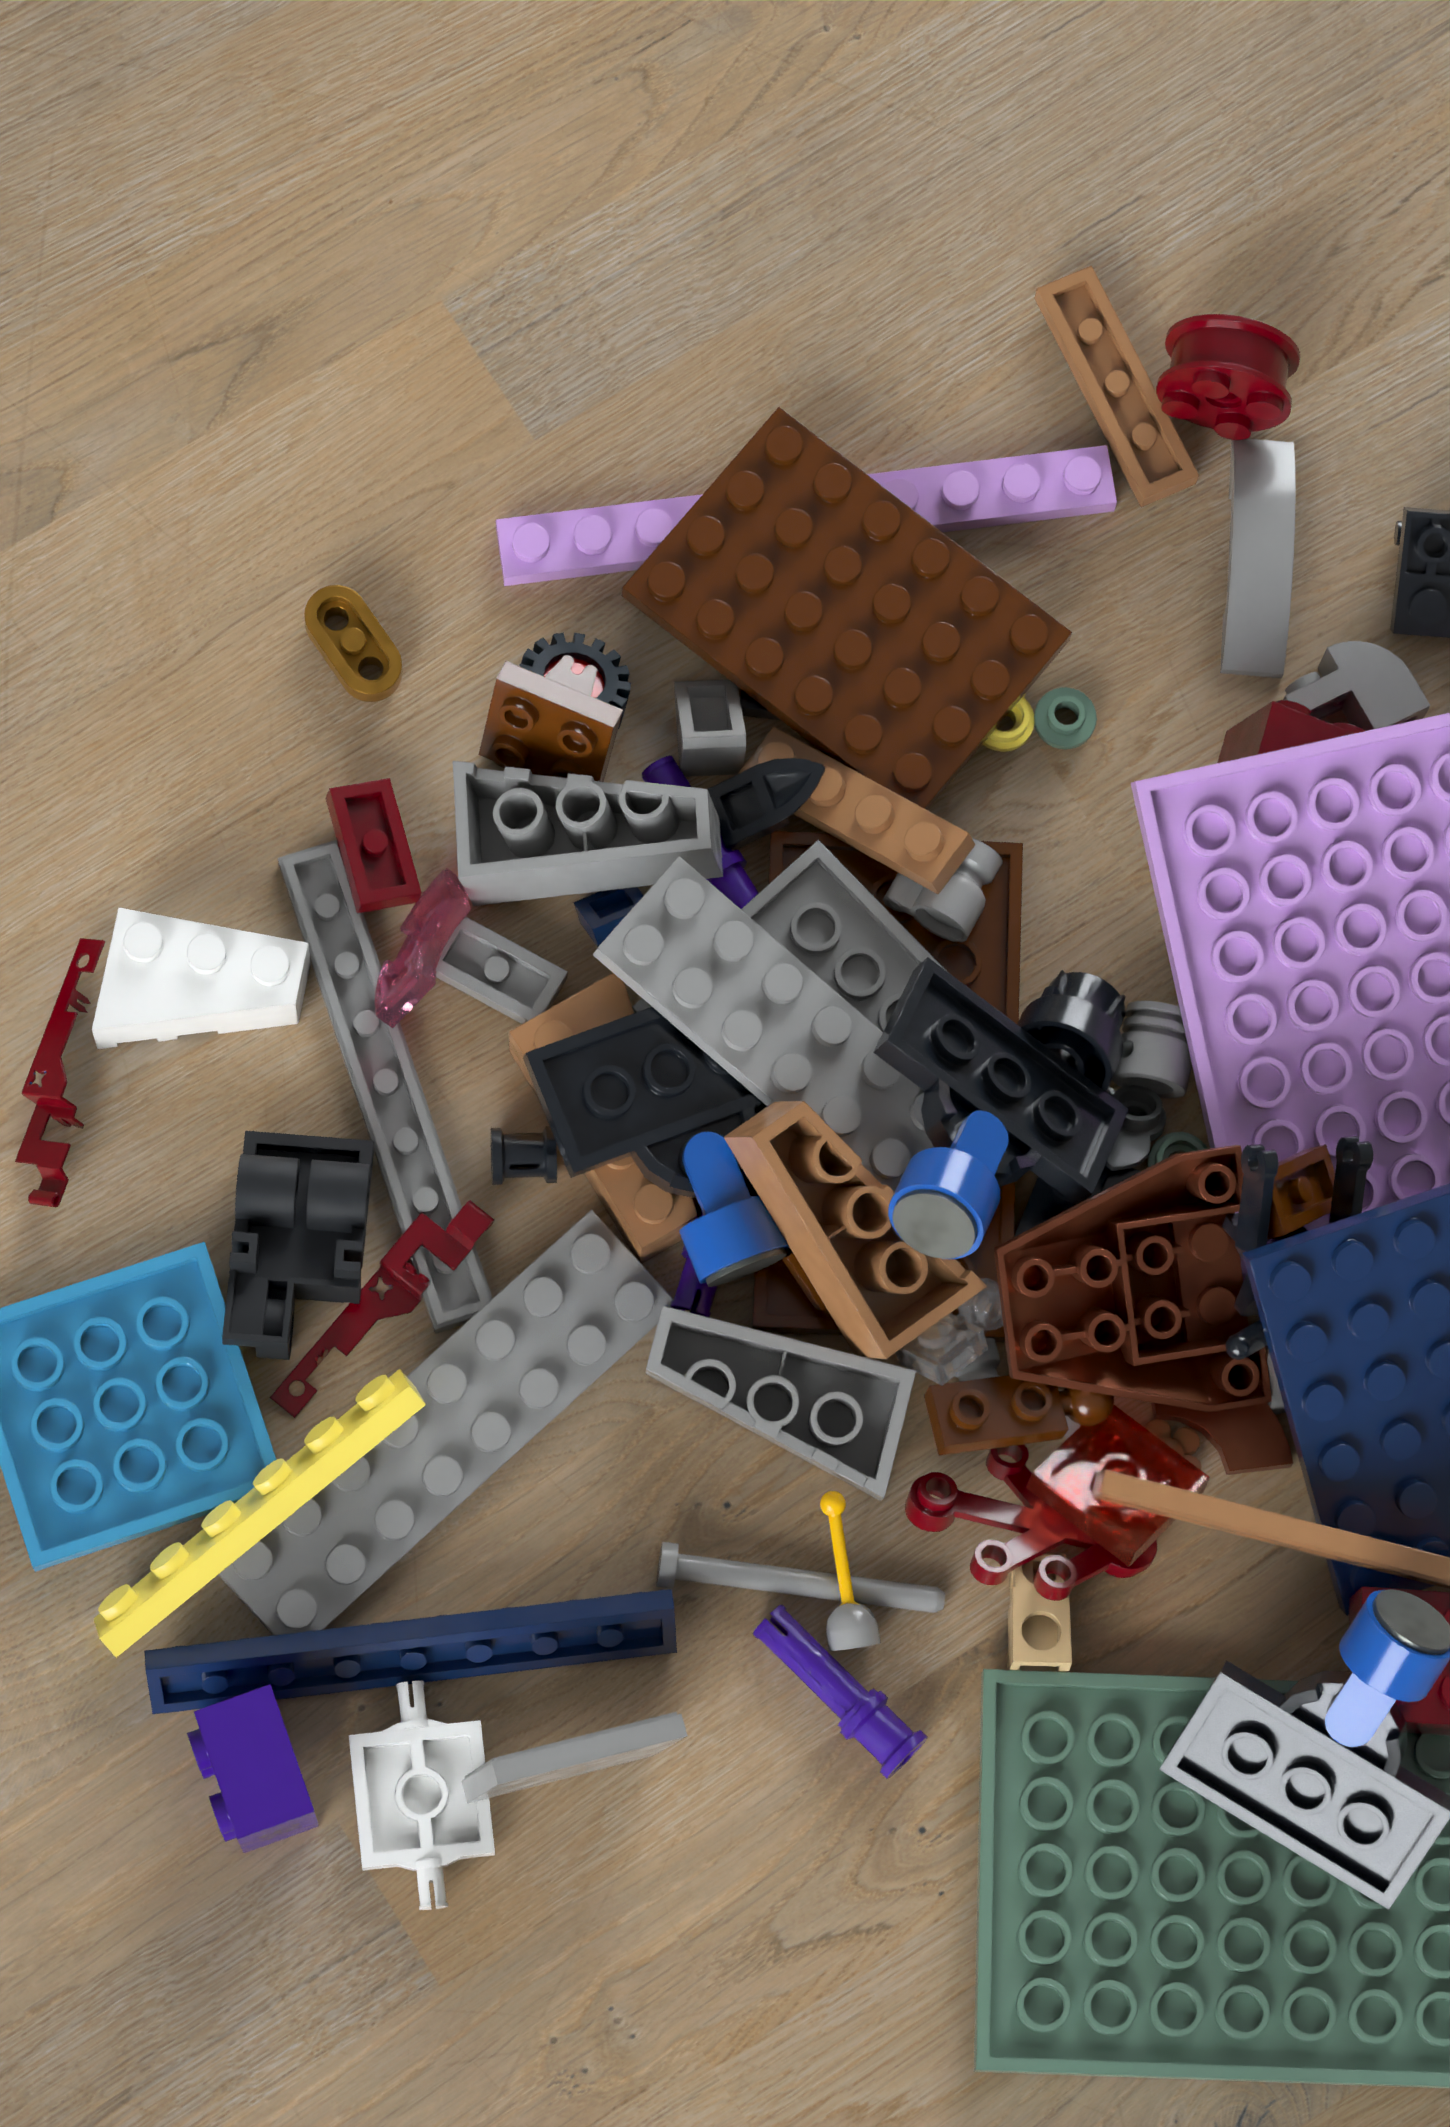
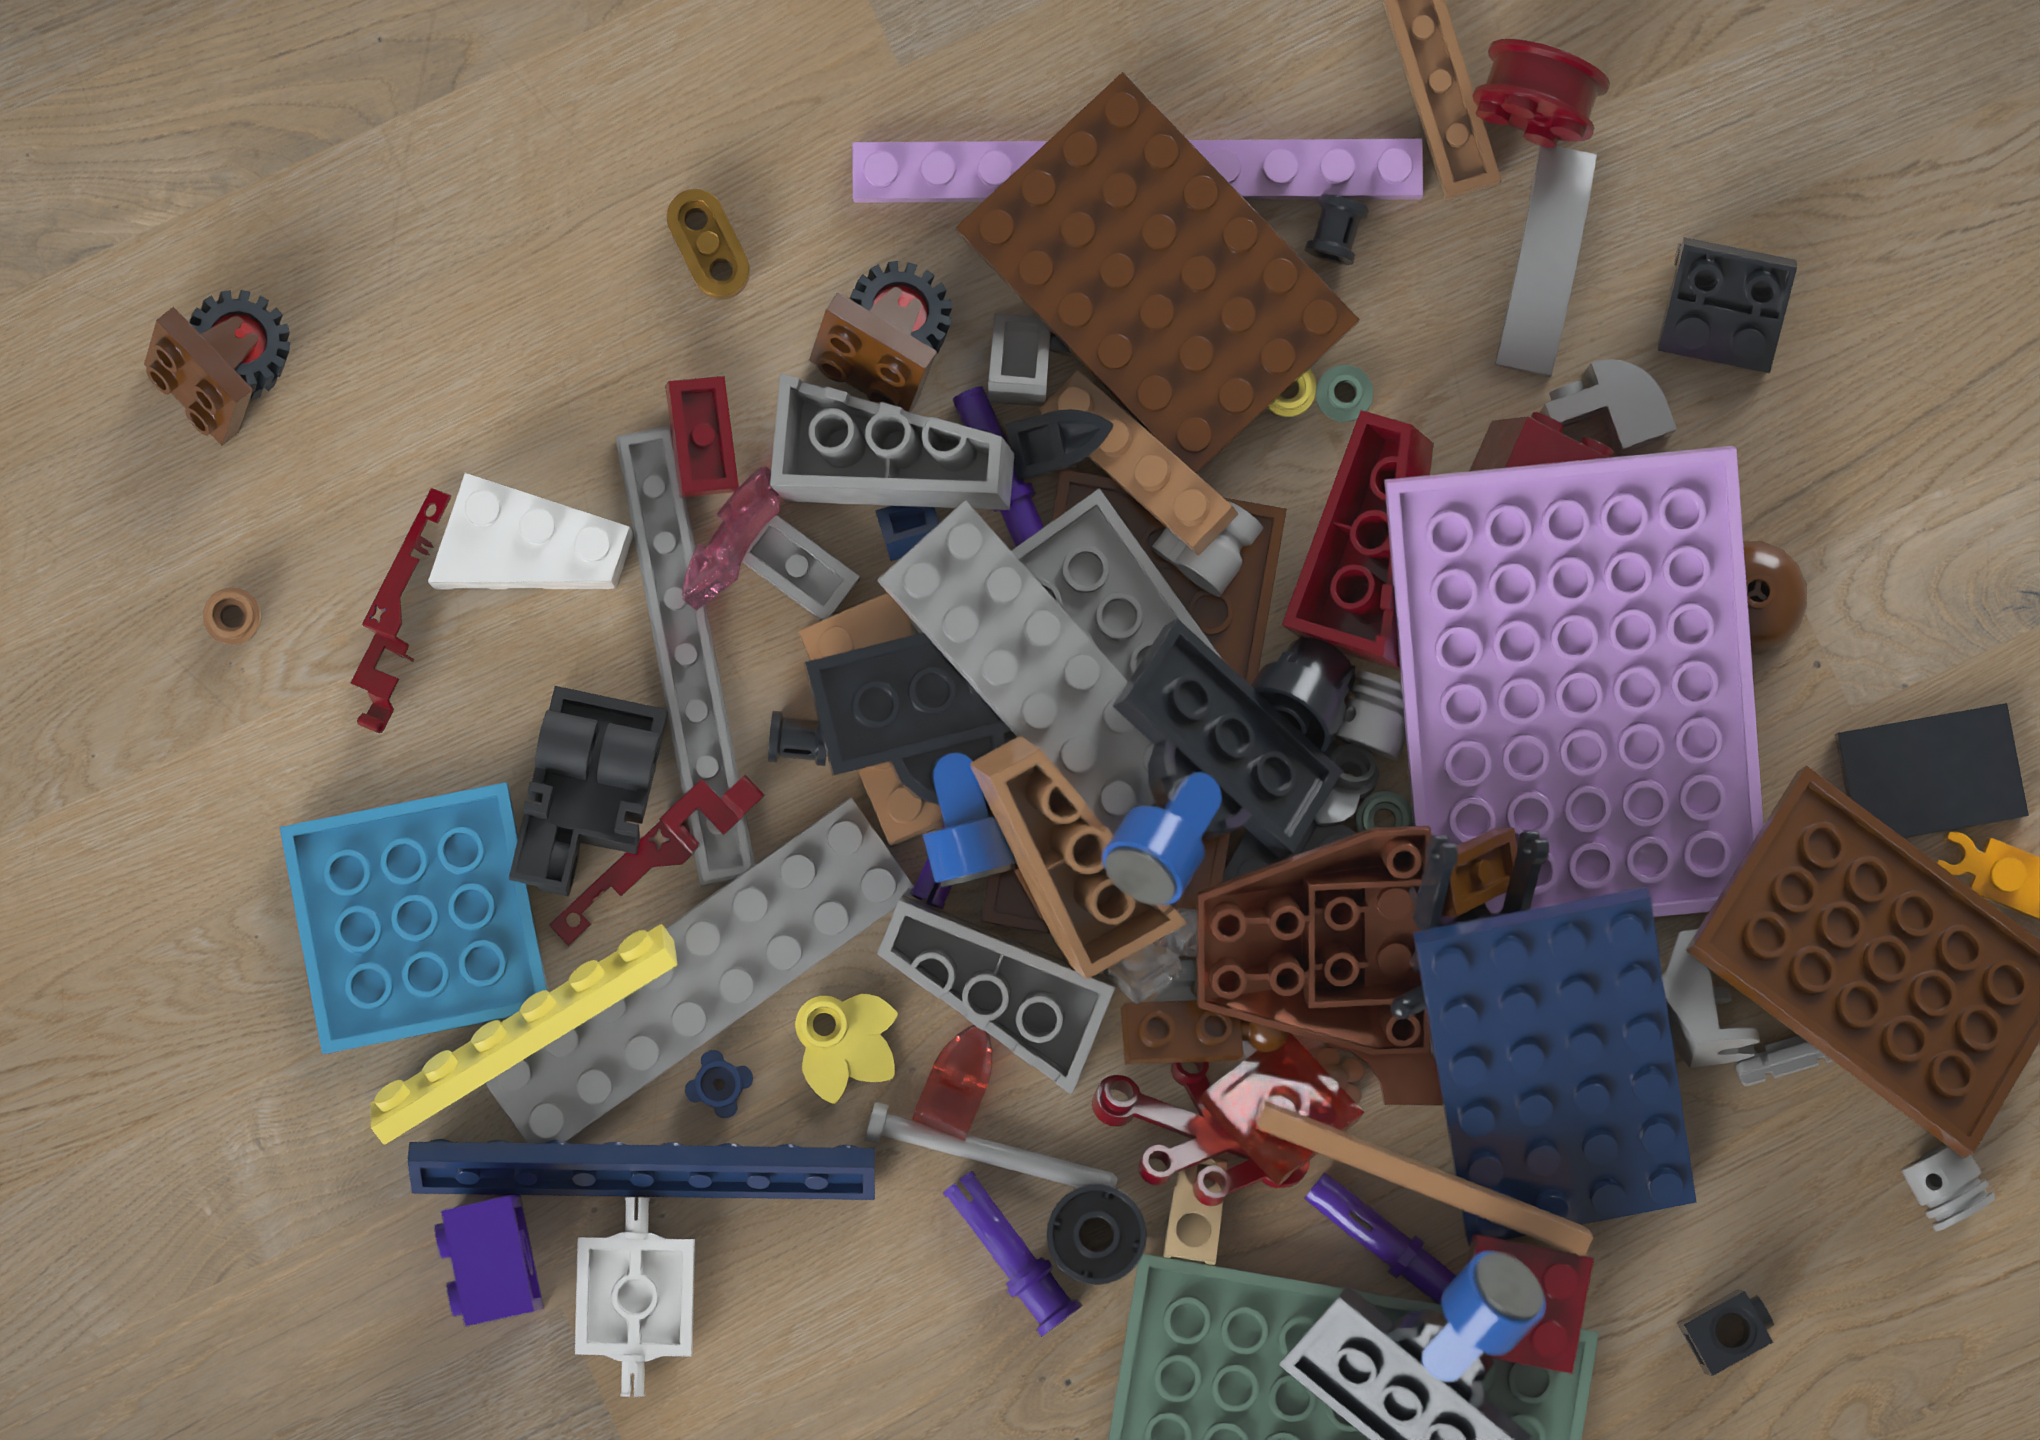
camera: 15 degrees right, 10 degrees up
(479, 1528) = (703, 1089): none -> dark blue plate
(574, 1756) = (767, 1288): light grey tile -> none
(628, 1488) = (851, 1049): none -> light yellow plate
(751, 1510) = (957, 1084): none -> clear red plate
(850, 1623) = (1030, 1197): hinge -> none
(935, 1684) = (1065, 1229): none -> black piece
(1030, 548) = (1336, 229): none -> black bush
(1103, 893) = (1347, 574): none -> dark red wedge
(1248, 1618) = (1384, 1240): none -> dark purple pin

